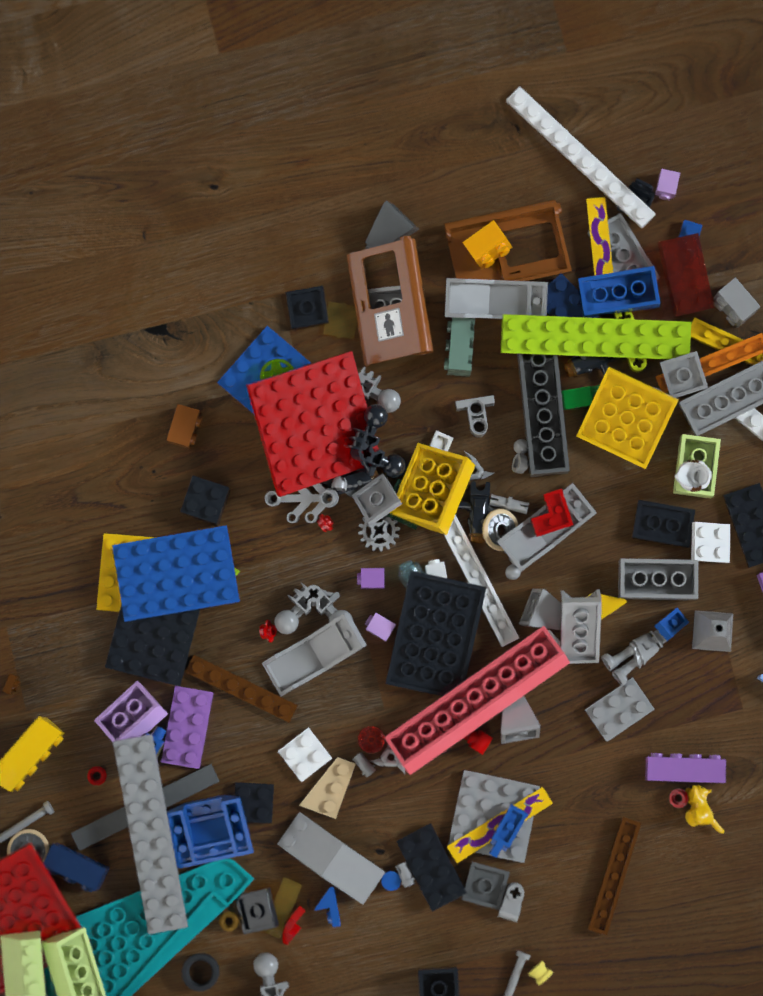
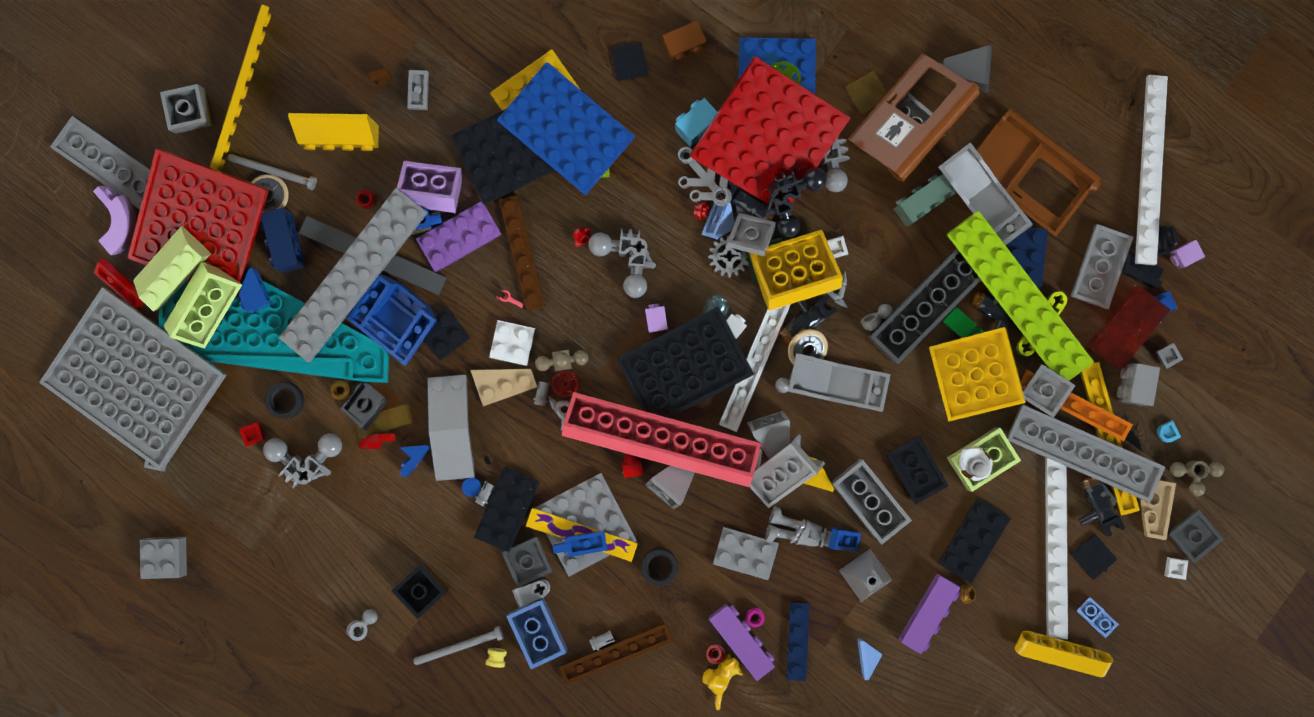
camera: 50 degrees right, 5 degrees up
(47, 663) = (418, 90): none -> light grey plate
(98, 924) = (253, 292): none -> blue slope
(163, 481) = (629, 61): none -> black piece
(205, 500) = (641, 104): black brick -> none
(255, 469) = (695, 122): none -> medium azure brick
(267, 728) = (507, 297): none -> coral hand
(307, 307) = (855, 58): black tile -> none
(314, 654) = (593, 286): light grey windscreen -> none
(339, 484) = (739, 196): light grey hinge -> none
(345, 516) = (719, 221): none -> light blue slope
(351, 727) = (561, 360): none -> dark tan piece
(371, 578) = (687, 281): medium lavender brick -> none
(475, 418) = (880, 260): light grey tile -> none
(488, 245) = (1022, 154): light orange brick -> none
(509, 504) = (833, 338): light grey pin -> none
(547, 923) = (537, 633): none -> medium blue brick
(557, 516) = (855, 383): red plate -> none
(589, 785) = (659, 581): none -> black tyre
(595, 878) = (601, 640): none -> light grey pin
(599, 236) = (1090, 247): yellow sticker -> none
(619, 292) = (1072, 287): blue slope -> none
(656, 227) = (1144, 274): none -> black panel
(681, 741) = (757, 623): none -> dark pink plate
(710, 542) = (933, 518): white plate -> none
(721, 726) = (797, 641): none -> dark blue plate
(733, 261) = (1168, 355): none -> light grey plate

